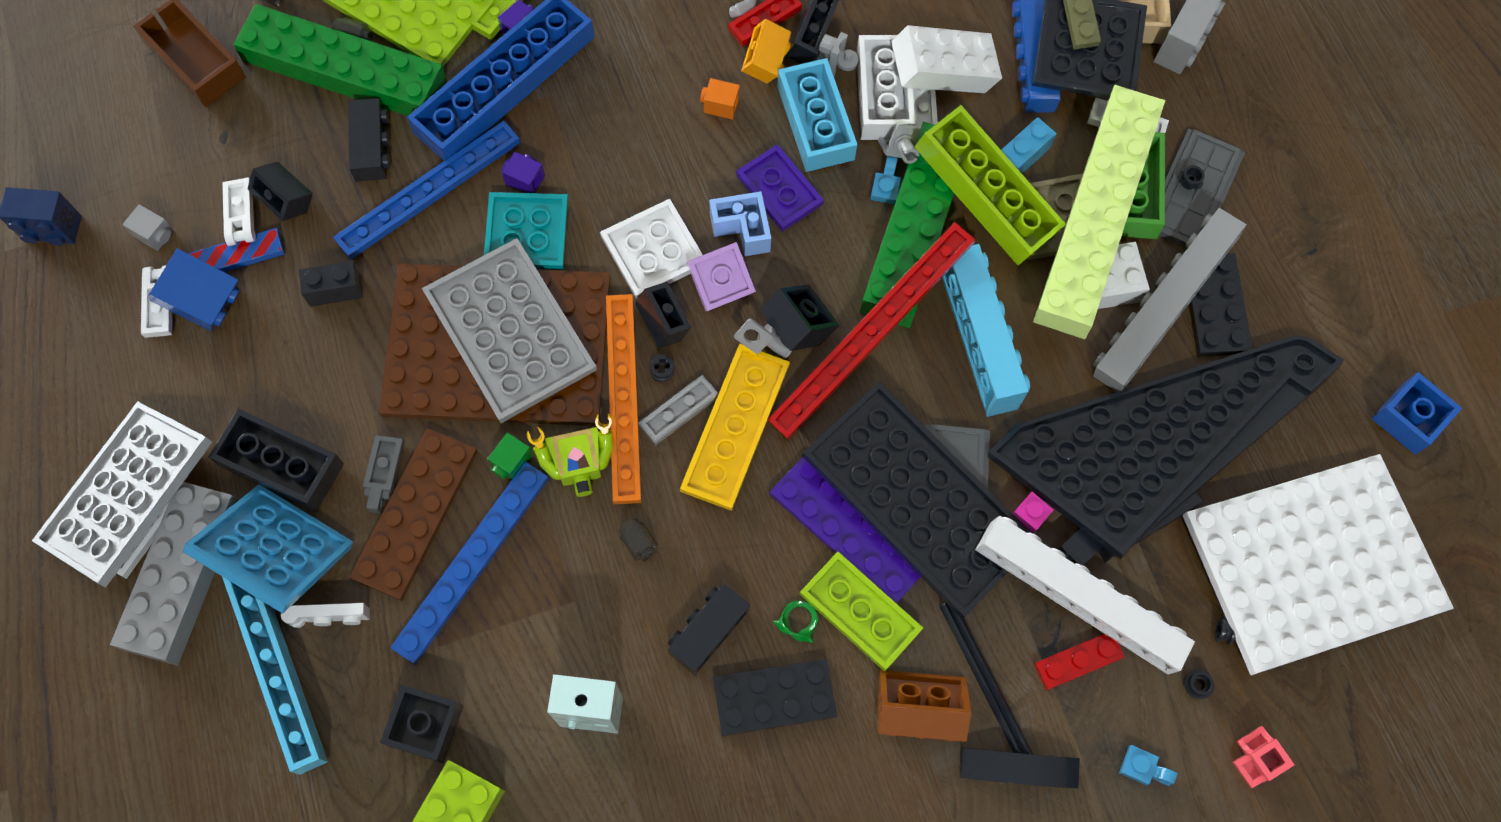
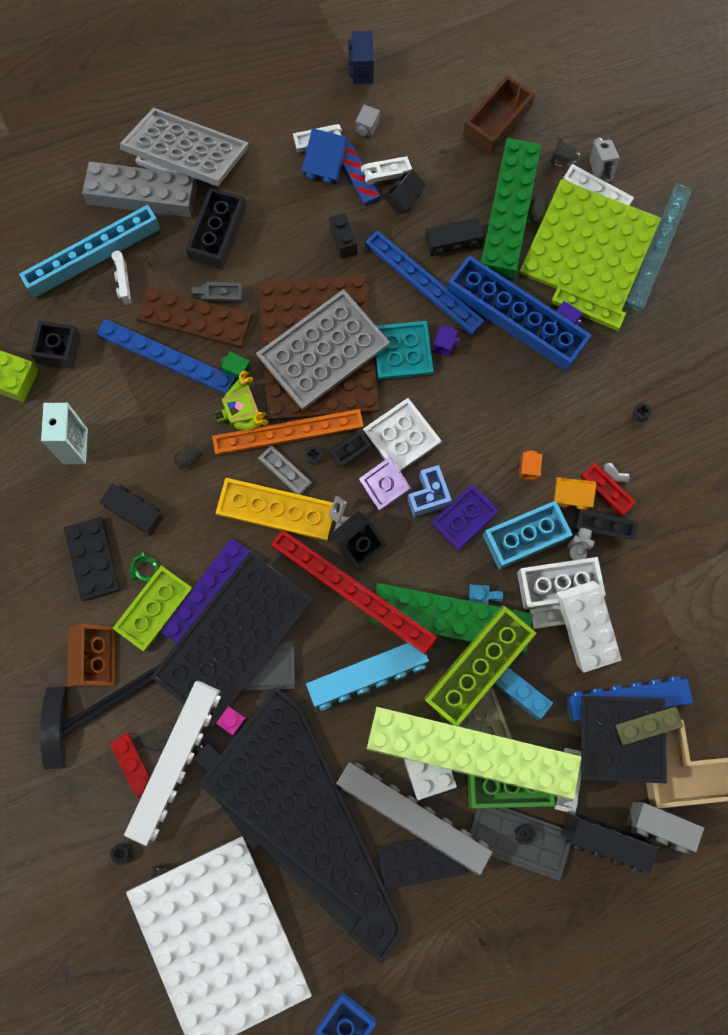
camera: 85 degrees right, 5 degrees up
(268, 548) = (152, 233): dark azure plate -> none
(902, 143) = (511, 598): light grey bracket -> none
(1143, 767) = (60, 814): dark azure plate -> none
(1207, 85) = (609, 842): none -> black brick
(1262, 757) = (70, 900): coral brick -> none

